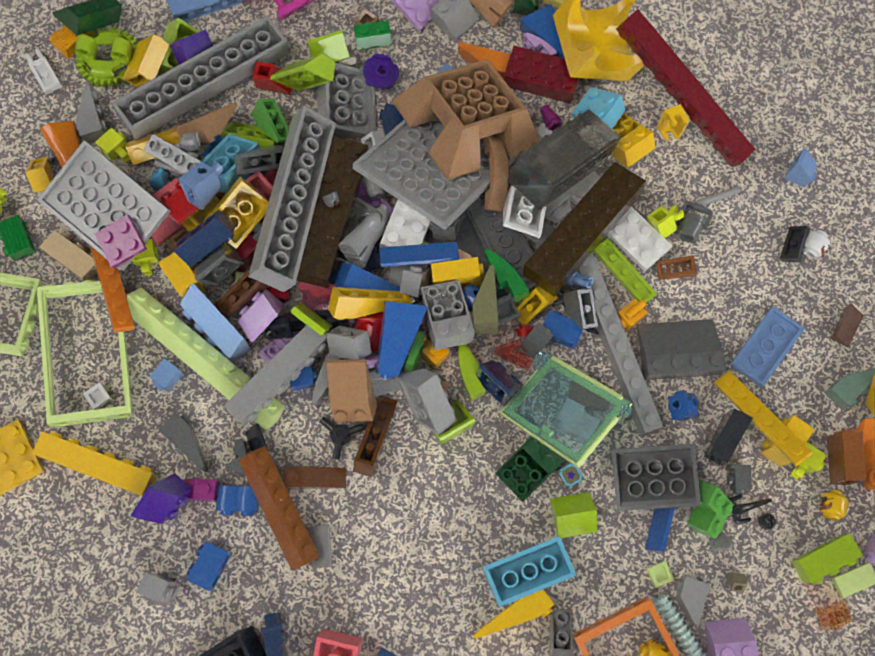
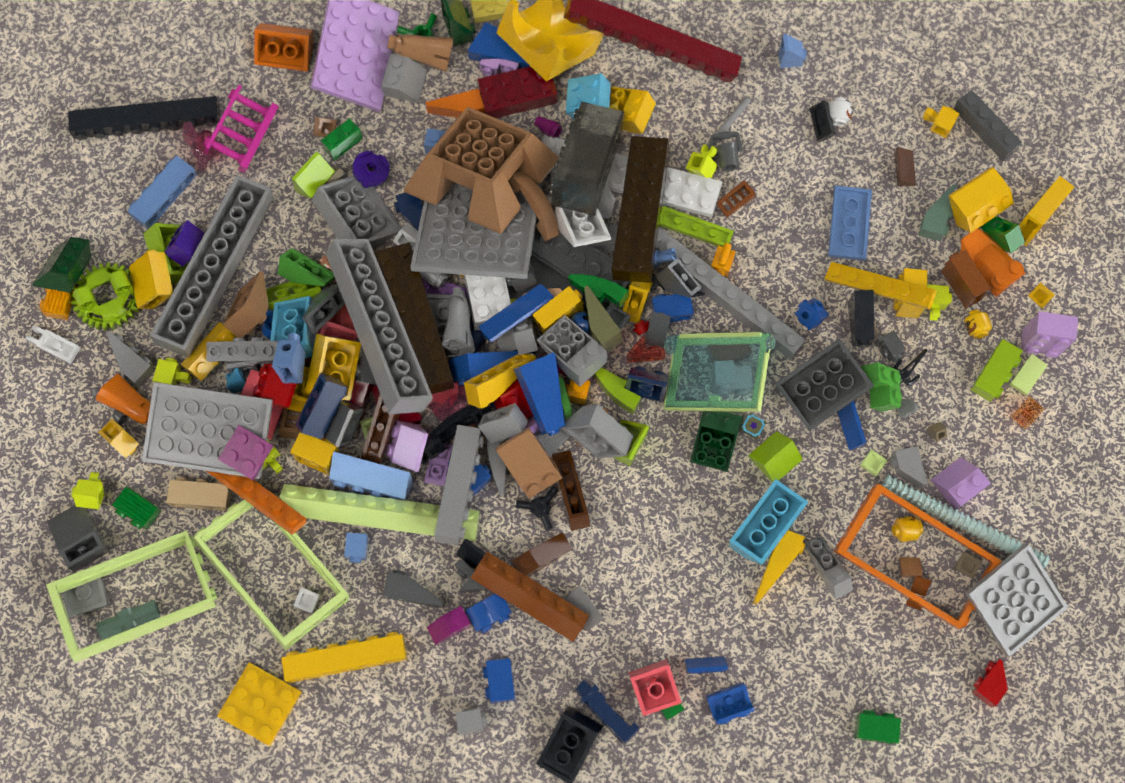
camera: 30 degrees left, 0 degrees up
(162, 500) = (428, 649): dark purple slope -> none
(190, 141) = (249, 329): light grey piece -> none
(262, 78) = (277, 230): red slope -> none
(306, 73) = (308, 207): lime slope -> none
(311, 319) = (457, 421): lime tile -> none
(331, 199) = (411, 308): dark grey hinge -> none
(673, 120) = (658, 69): yellow hinge -> none
(680, 349) = (780, 267): dark grey slope -> none
(763, 519) = (930, 370): black hinge -> none

